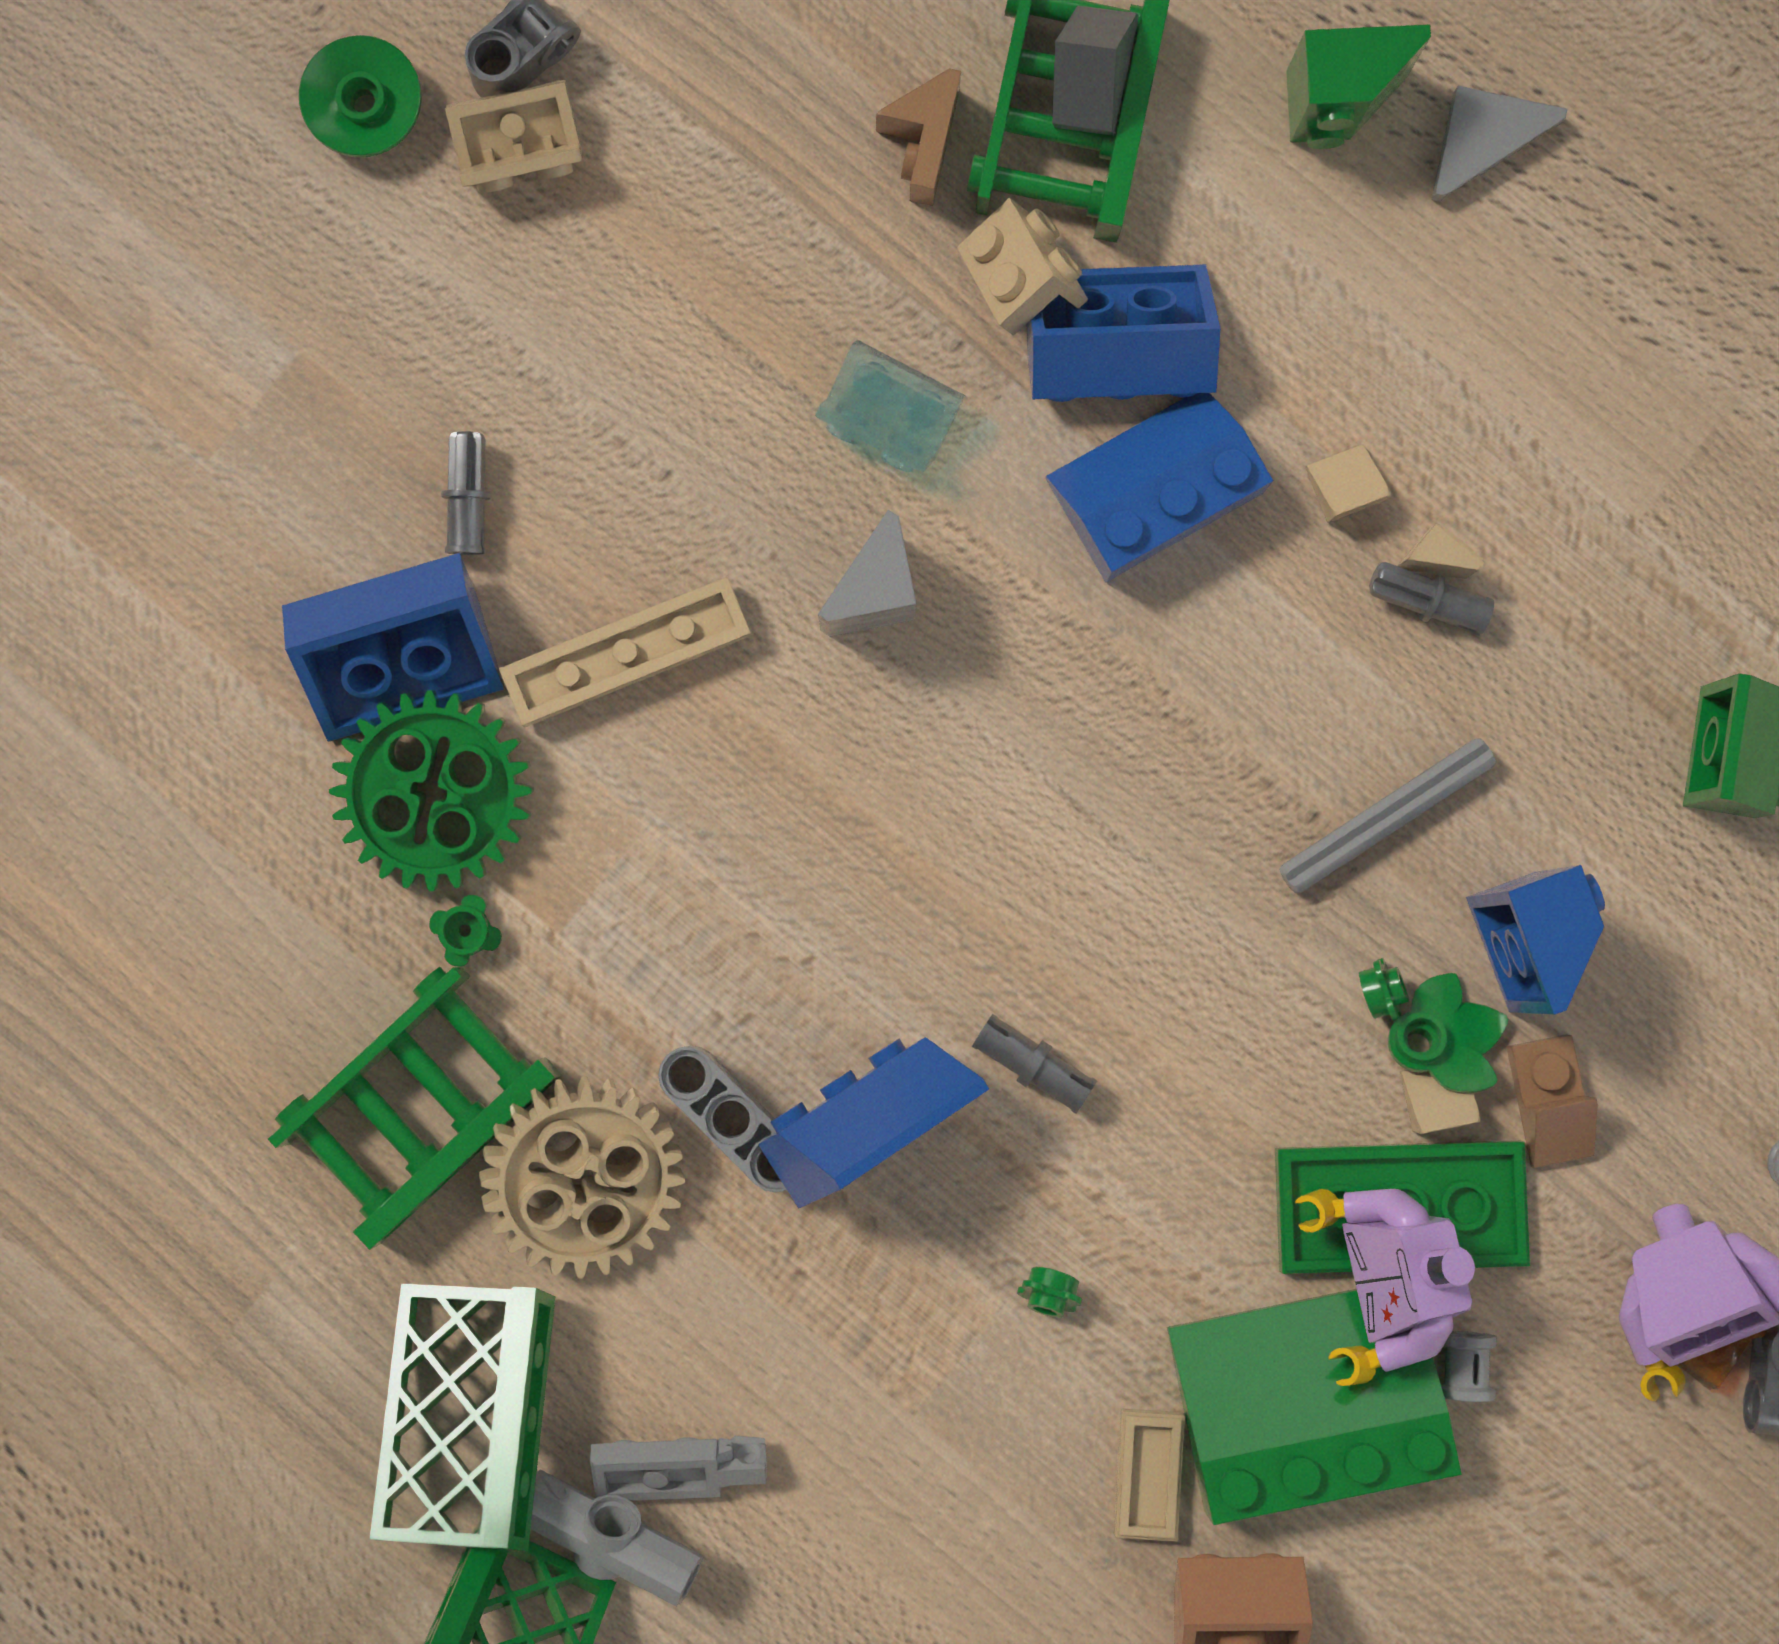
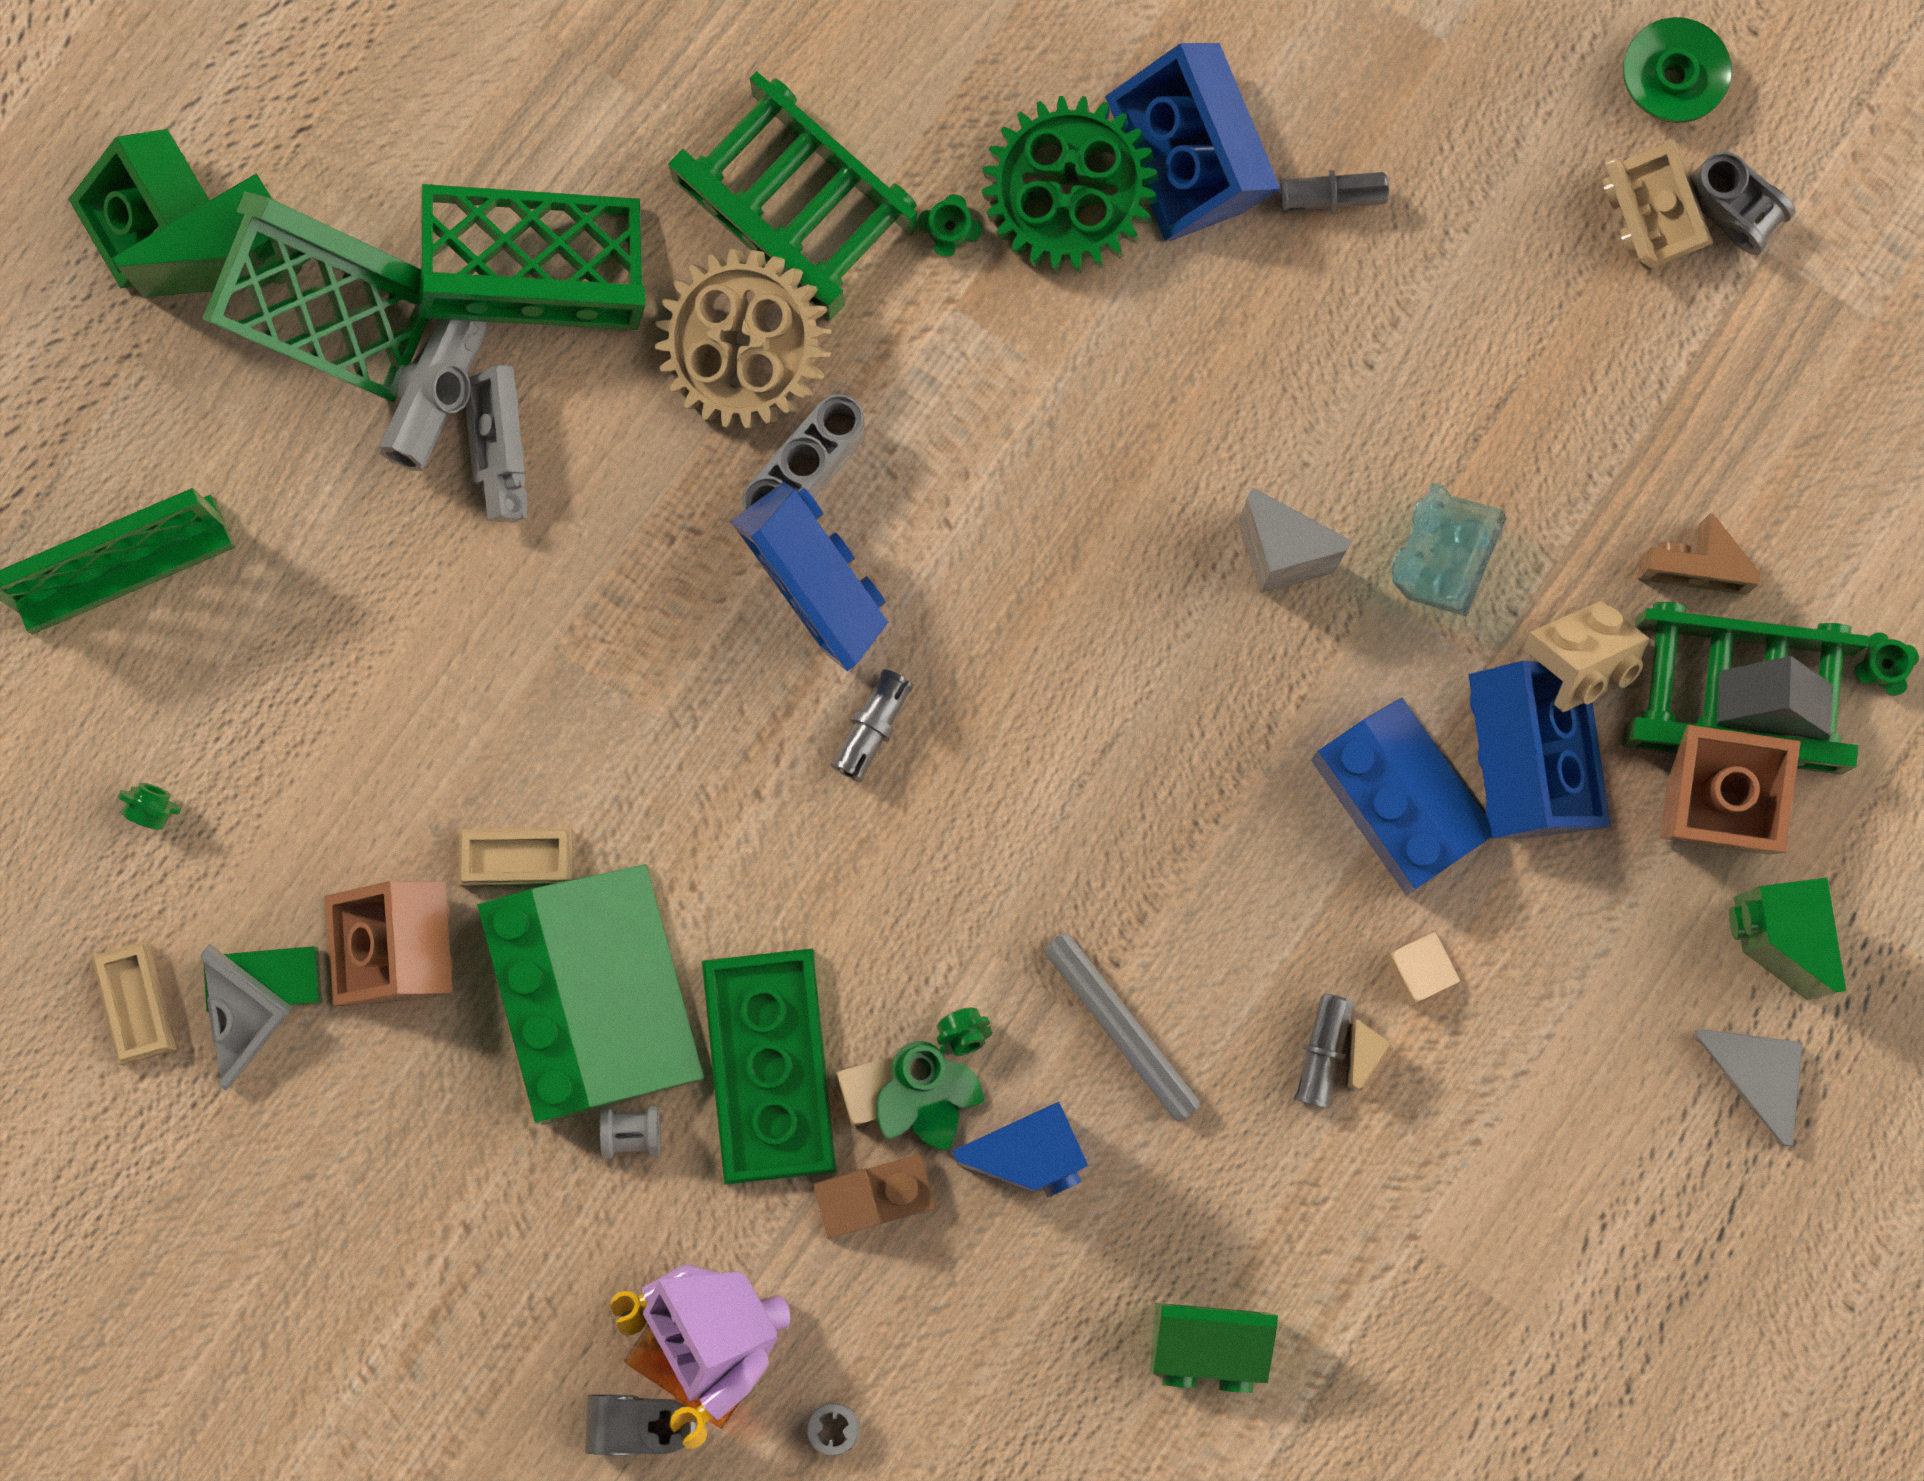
camera: 90 degrees right, 5 degrees down
(625, 652) = (1207, 340): tan plate -> none
(1050, 1292) = (671, 754): green plate -> none
(1190, 128) = (1731, 791): none -> nougat slope
(1405, 1276) = (708, 1056): lavender torso -> none

